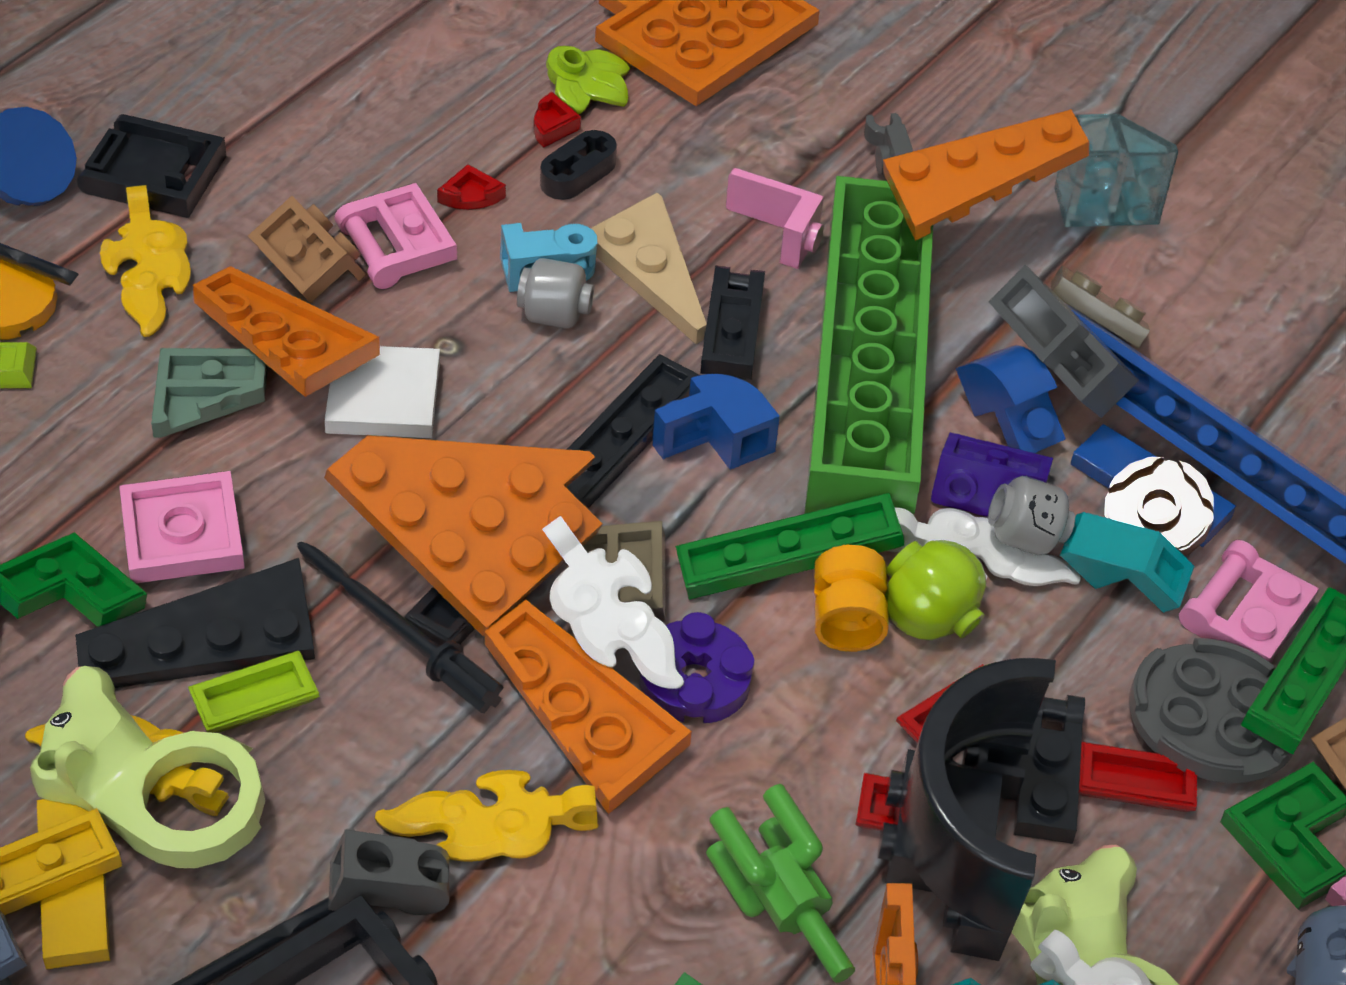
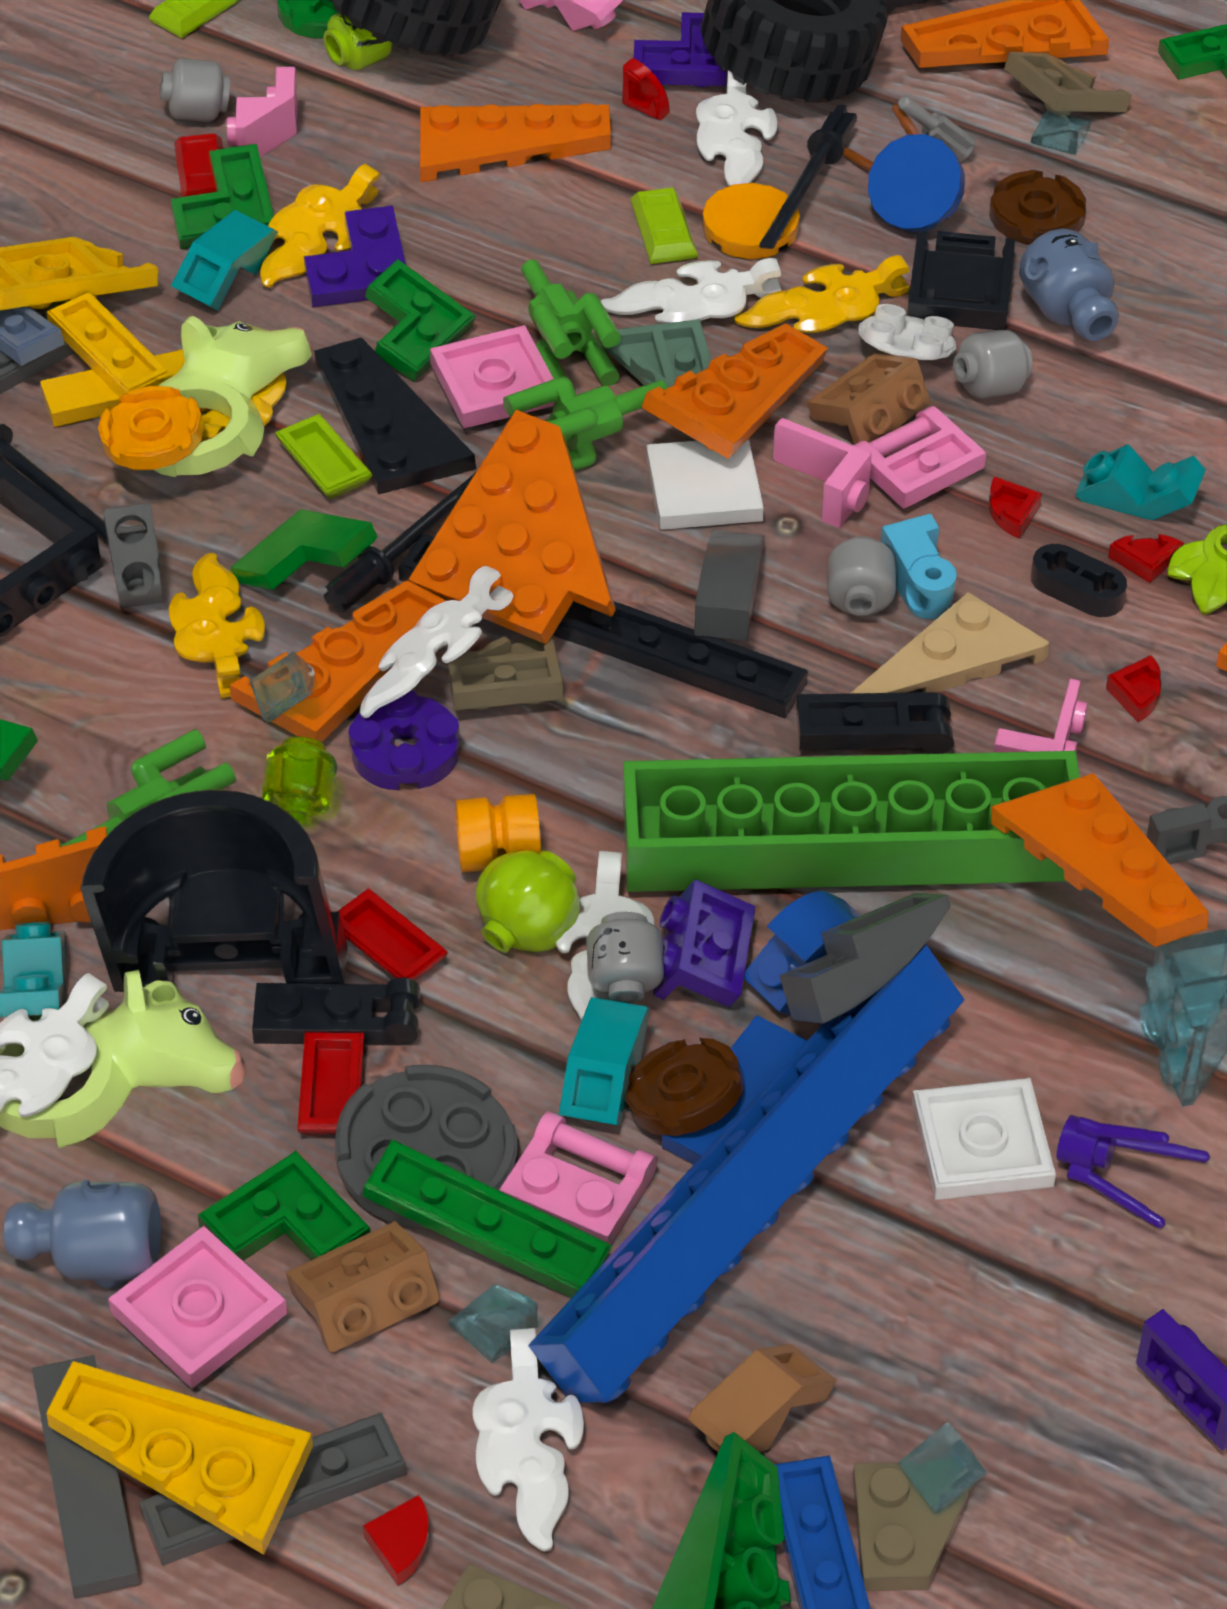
camera: 85 degrees right, 0 degrees up
(72, 96) = (1032, 205): none -> reddish brown tile
(116, 355) = (713, 295): none -> white piece
(130, 450) = (568, 325): none -> bright green plant
(208, 824) = (151, 428): none -> light orange tile
(211, 84) = (1070, 283): none -> sand blue piece
(229, 209) = (907, 335): none -> white dish
(285, 461) = (583, 415): none -> bright green plant
(294, 159) = (993, 363): none -> light grey head
(393, 715) = (303, 539): none -> green tile
(410, 277) = (837, 463): none -> bright pink bracket
(478, 103) = (1129, 486): none -> teal slope
(538, 384) = (728, 585): none -> dark grey slope
(638, 745) = (282, 685): none -> clear light blue slope
(711, 157) = (1137, 687): none -> red tile
(721, 412) = (719, 715): blue brick -> none
(754, 753) = (300, 778): none -> clear neon green head
(786, 545) = (560, 785): green tile -> none
(1085, 296) = (984, 1019): dark tan wing -> none
(1200, 338) = (983, 1139): none -> white tile
(1217, 272) = (1092, 1144): none -> dark purple plant

